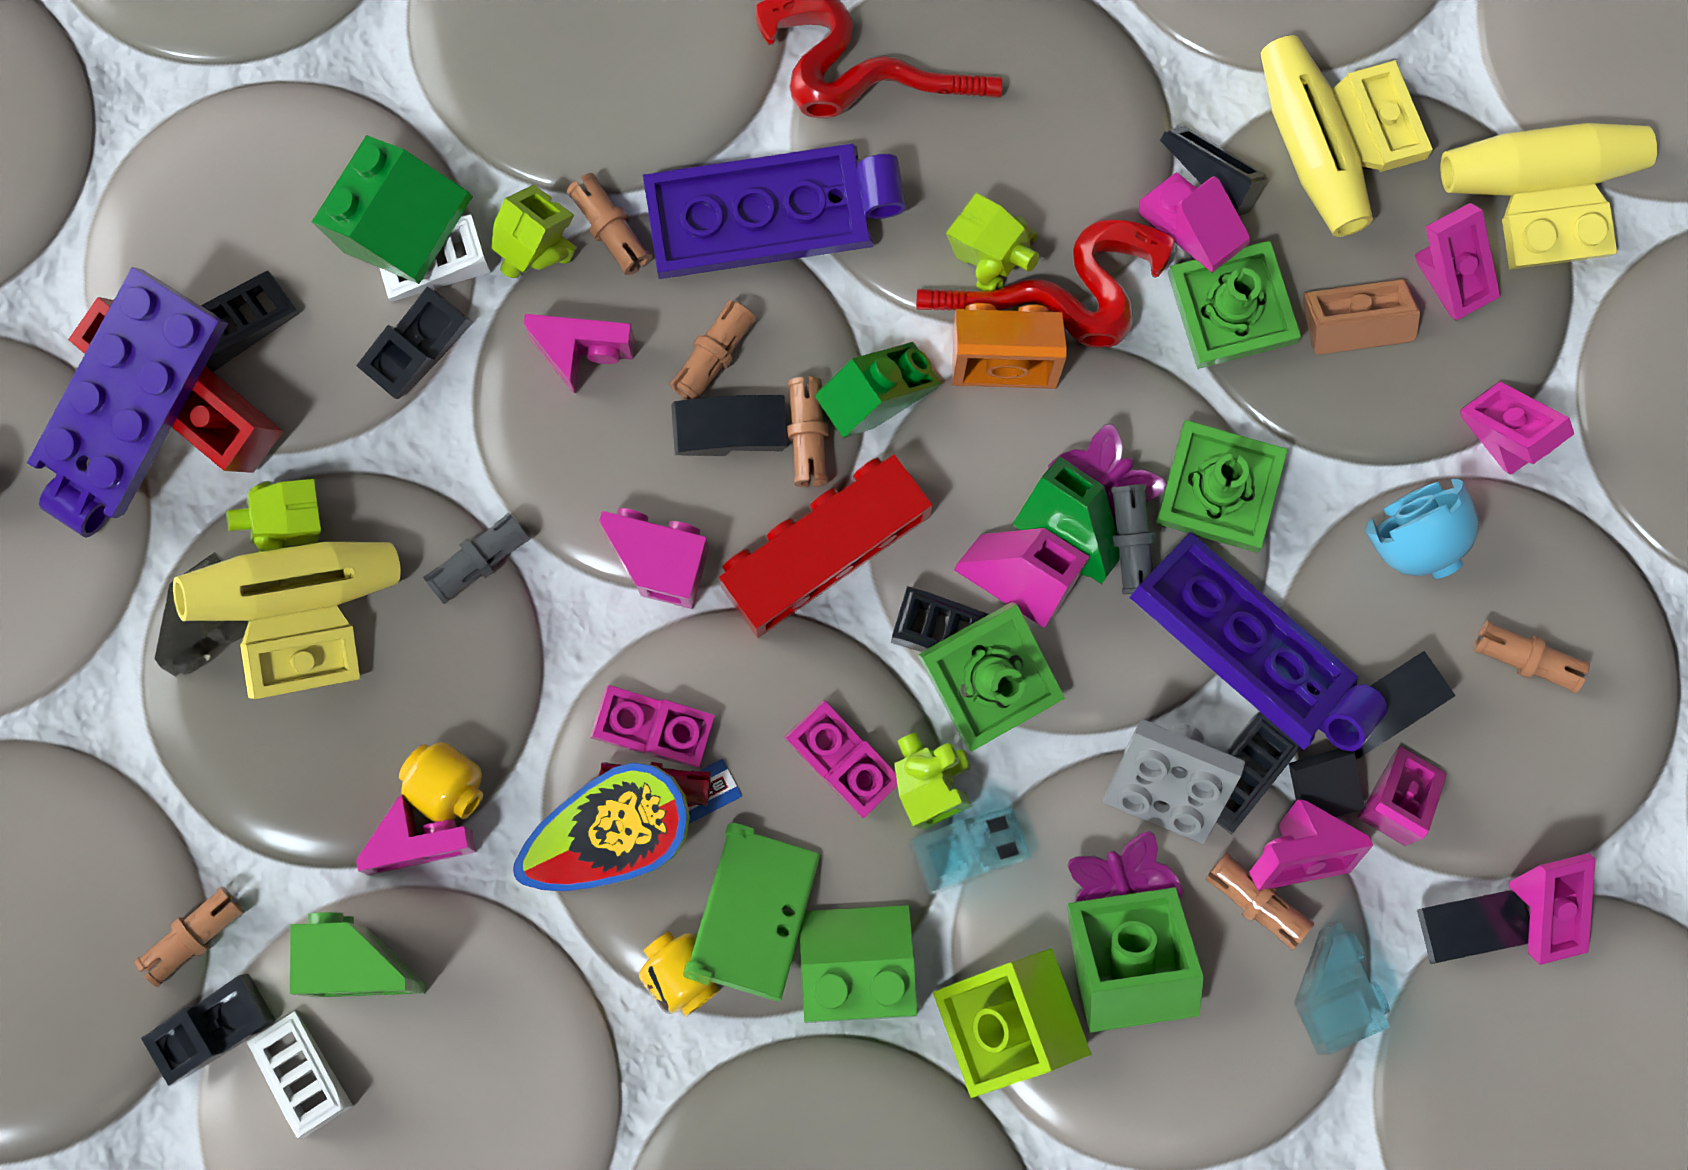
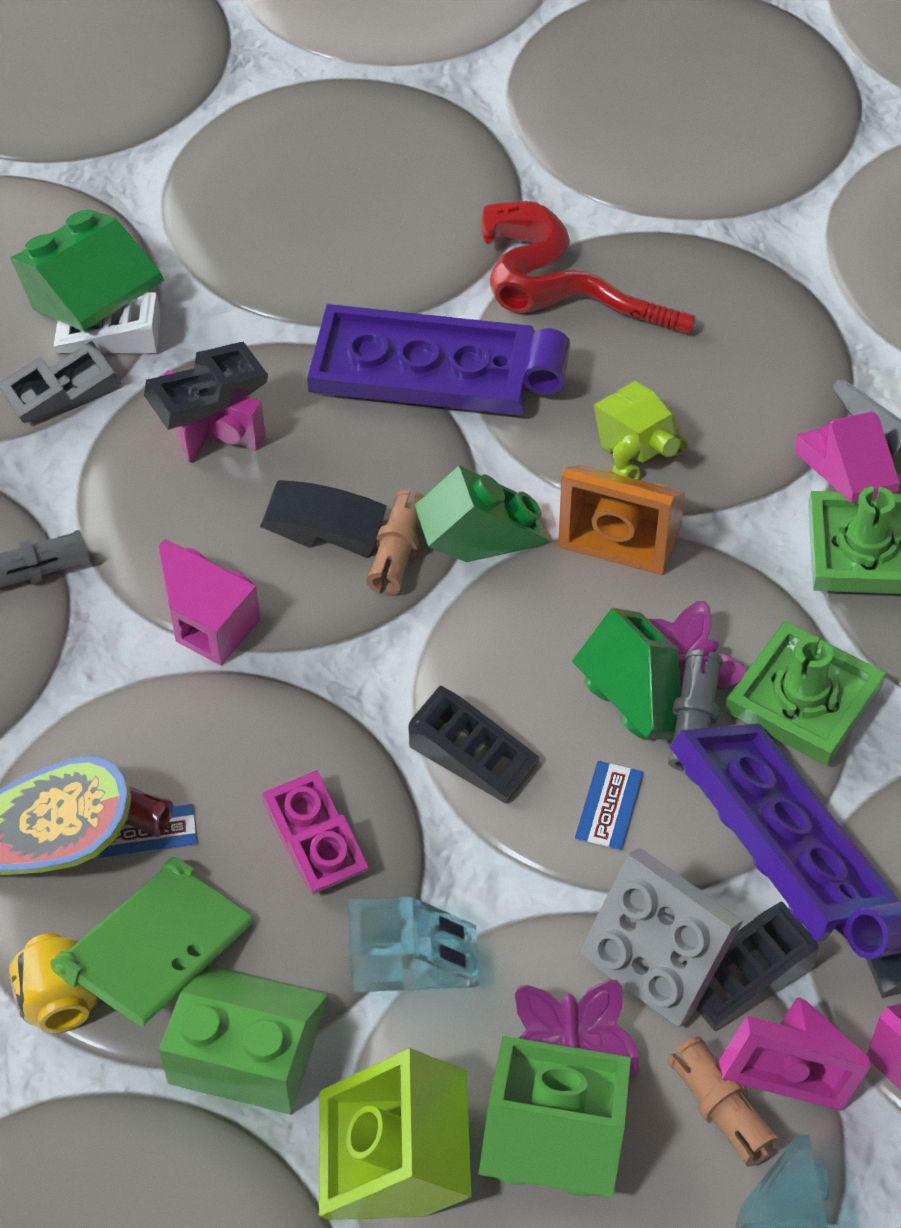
camera: 20 degrees right, 25 degrees down
(531, 232) = (201, 315): lime piece -> none
(574, 328) = (216, 382): none -> black slope
(609, 224) = (281, 338): nougat pin -> none
(652, 726) = (145, 755): dark pink slope -> none
(712, 351) = (336, 453): nougat pin -> none
(825, 544) = (374, 635): red brick -> none
(927, 781) = (390, 865): lime piece -> none
(1022, 688) = (499, 786): bright green plate -> none
(1025, 569) = (573, 708): dark pink slope -> none
(1081, 646) = (609, 805): none -> sticker
(1093, 329) = (736, 525): red animal -> none
(1329, 782) = (842, 996): black piece -> none

